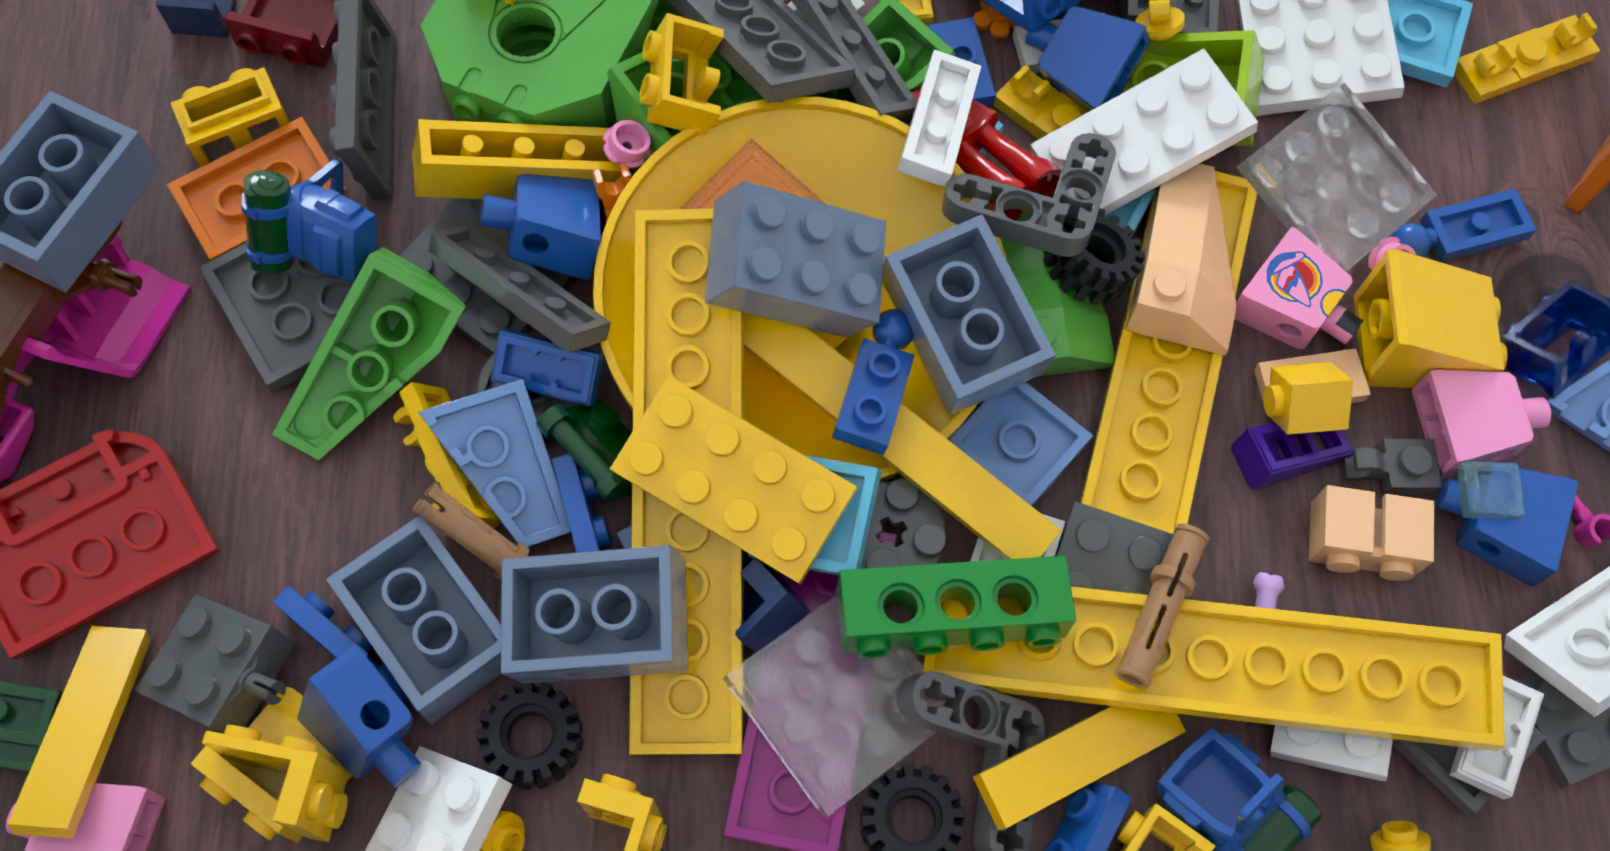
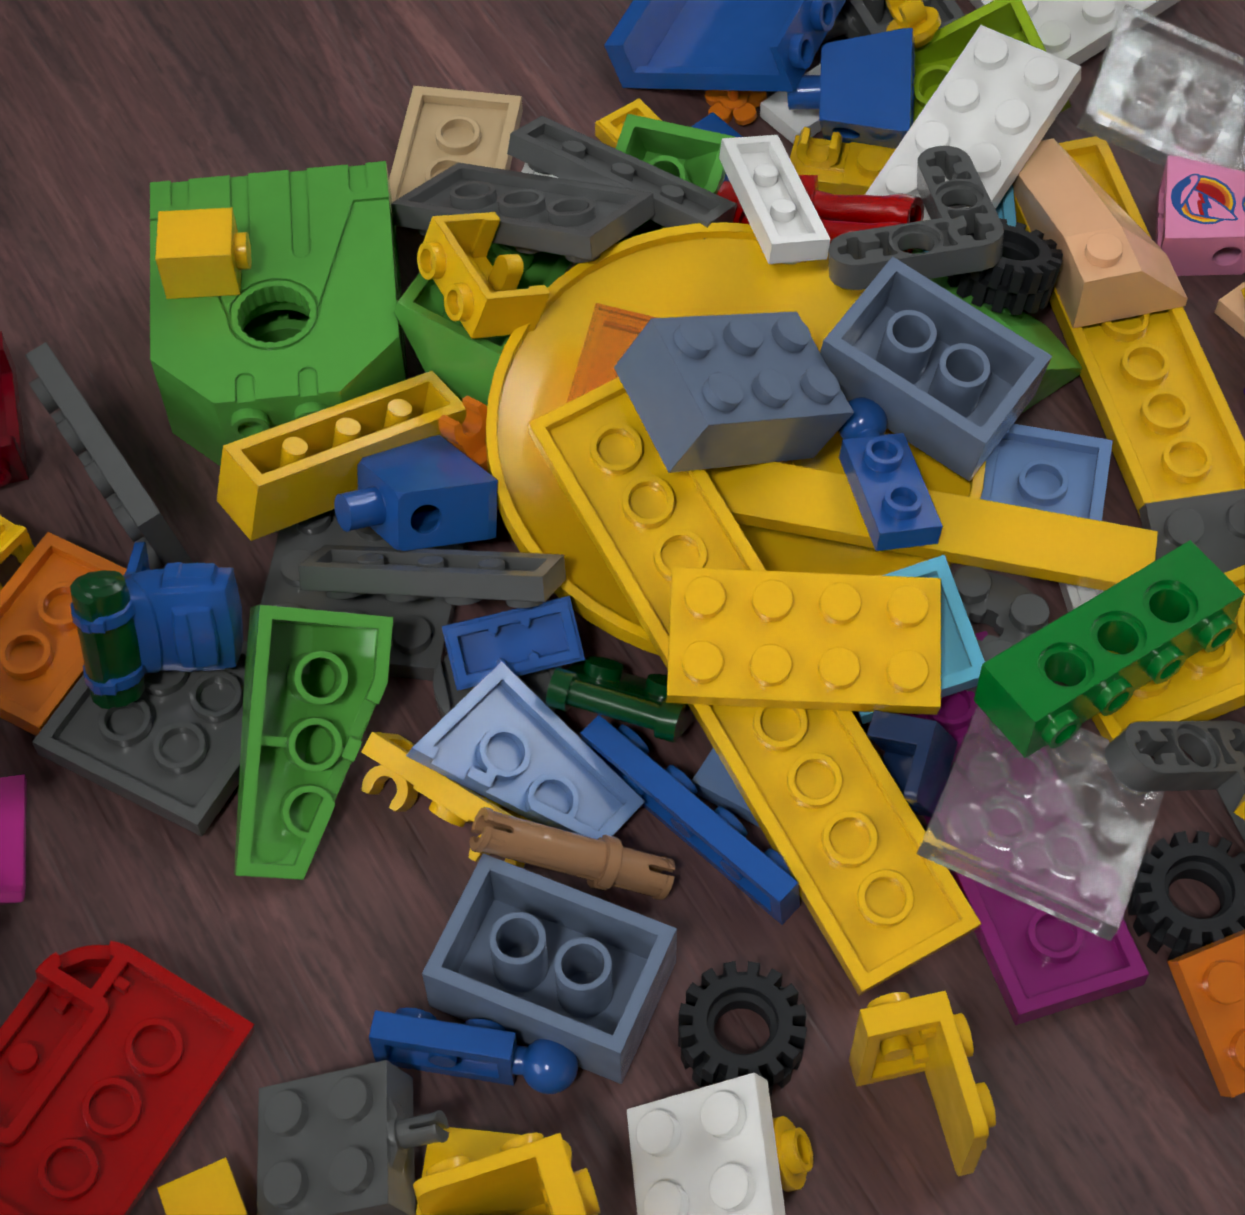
camera: 25 degrees left, 10 degrees down
(359, 718) = (555, 1086): blue torso -> none
(594, 615) = (753, 847): sand blue brick -> none
(631, 135) = (455, 376): bright pink plate -> none

